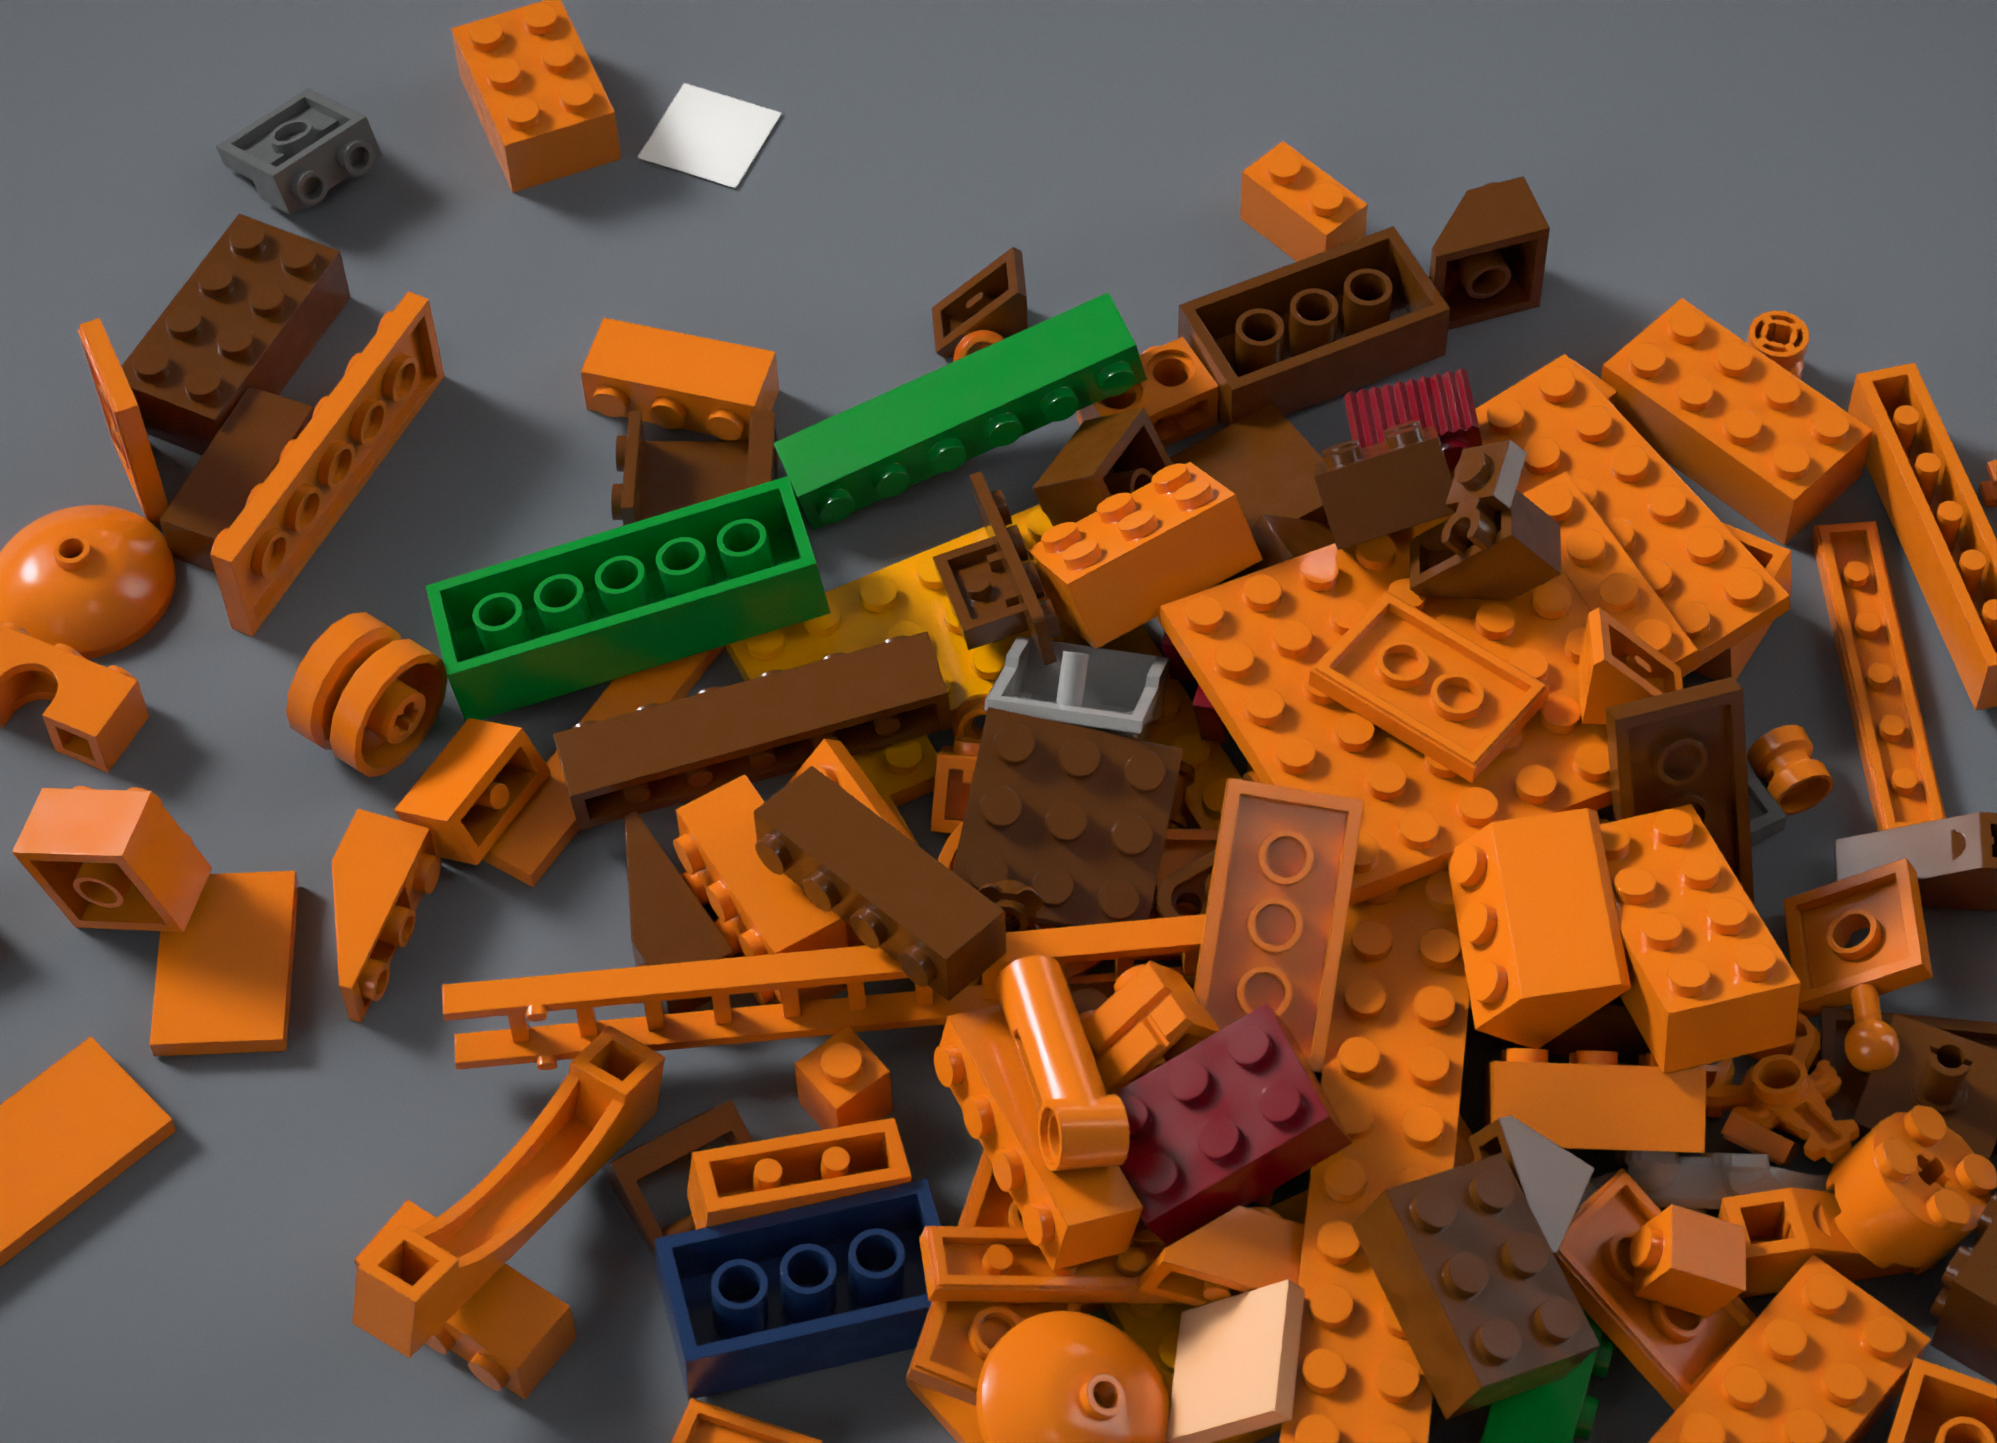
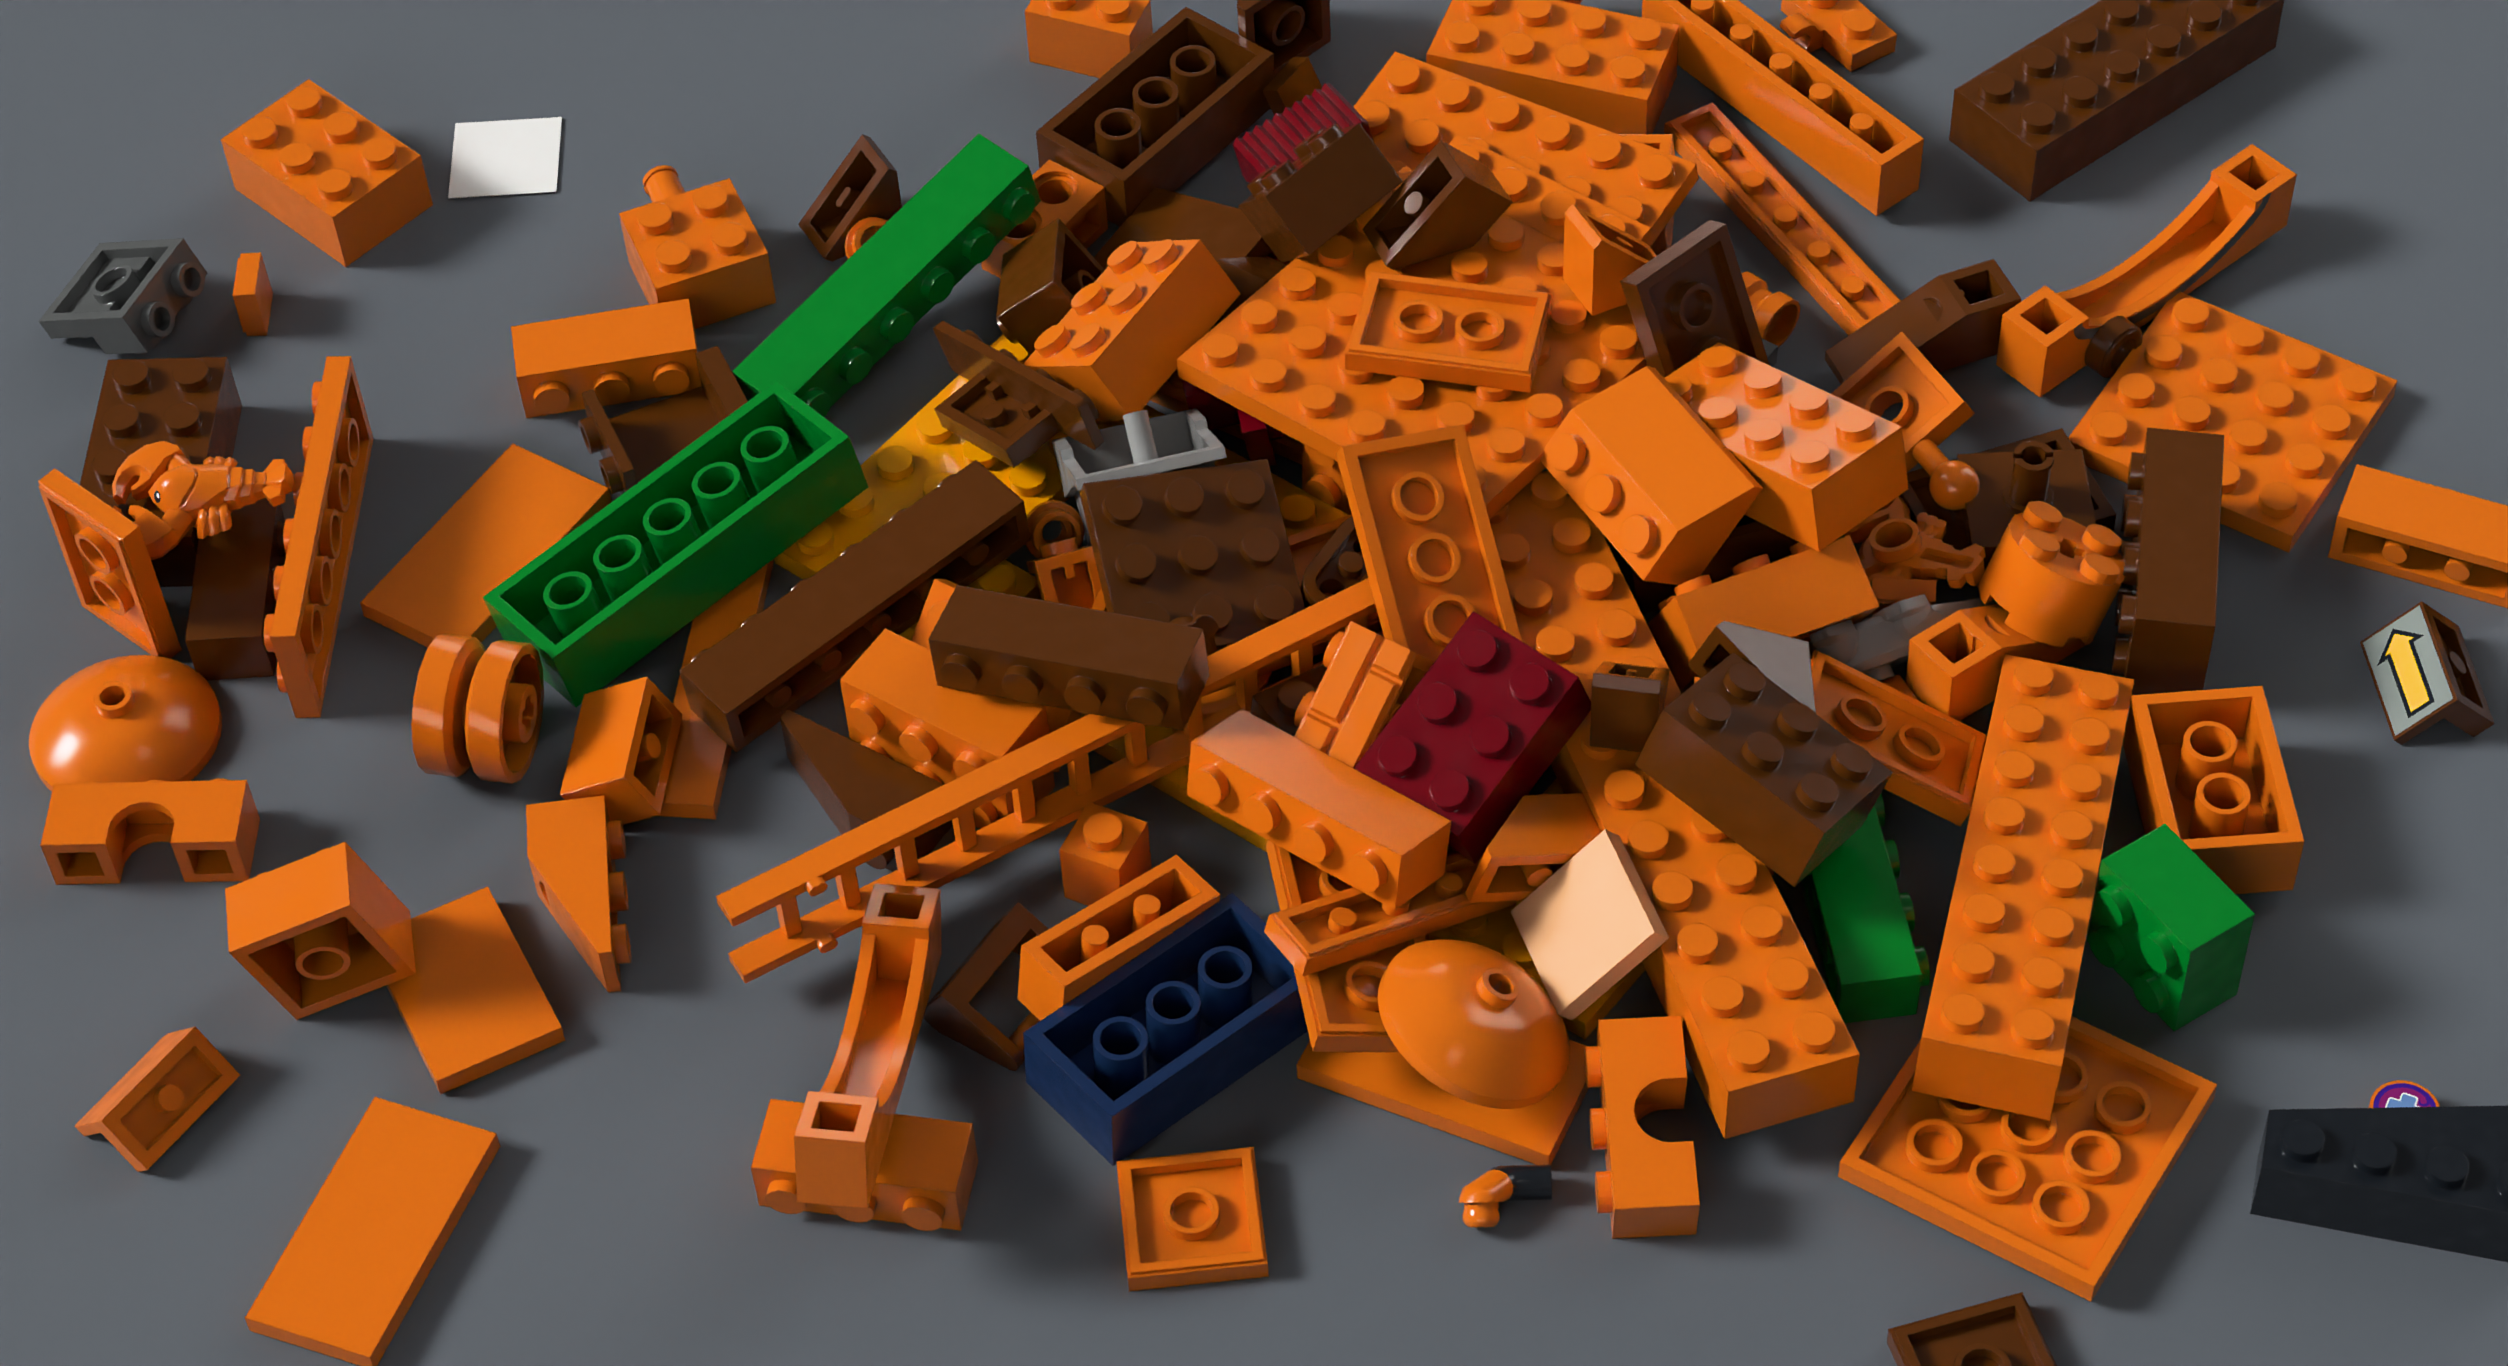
camera: 25 degrees left, 5 degrees down
(220, 381) = (192, 493): none -> orange animal
(409, 191) = (252, 294): none -> orange tile
(481, 520) = (480, 542): none -> orange tile
(816, 301) = (697, 248): none -> orange brick
(1076, 1117) = (1358, 767): orange piece -> none
(1382, 1150) = (1626, 704): none -> reddish brown slope
(1465, 347) = (1291, 84): none -> reddish brown tile
(1481, 486) = (1413, 152): reddish brown plate -> none
(1689, 1260) = (1913, 694): orange brick -> none

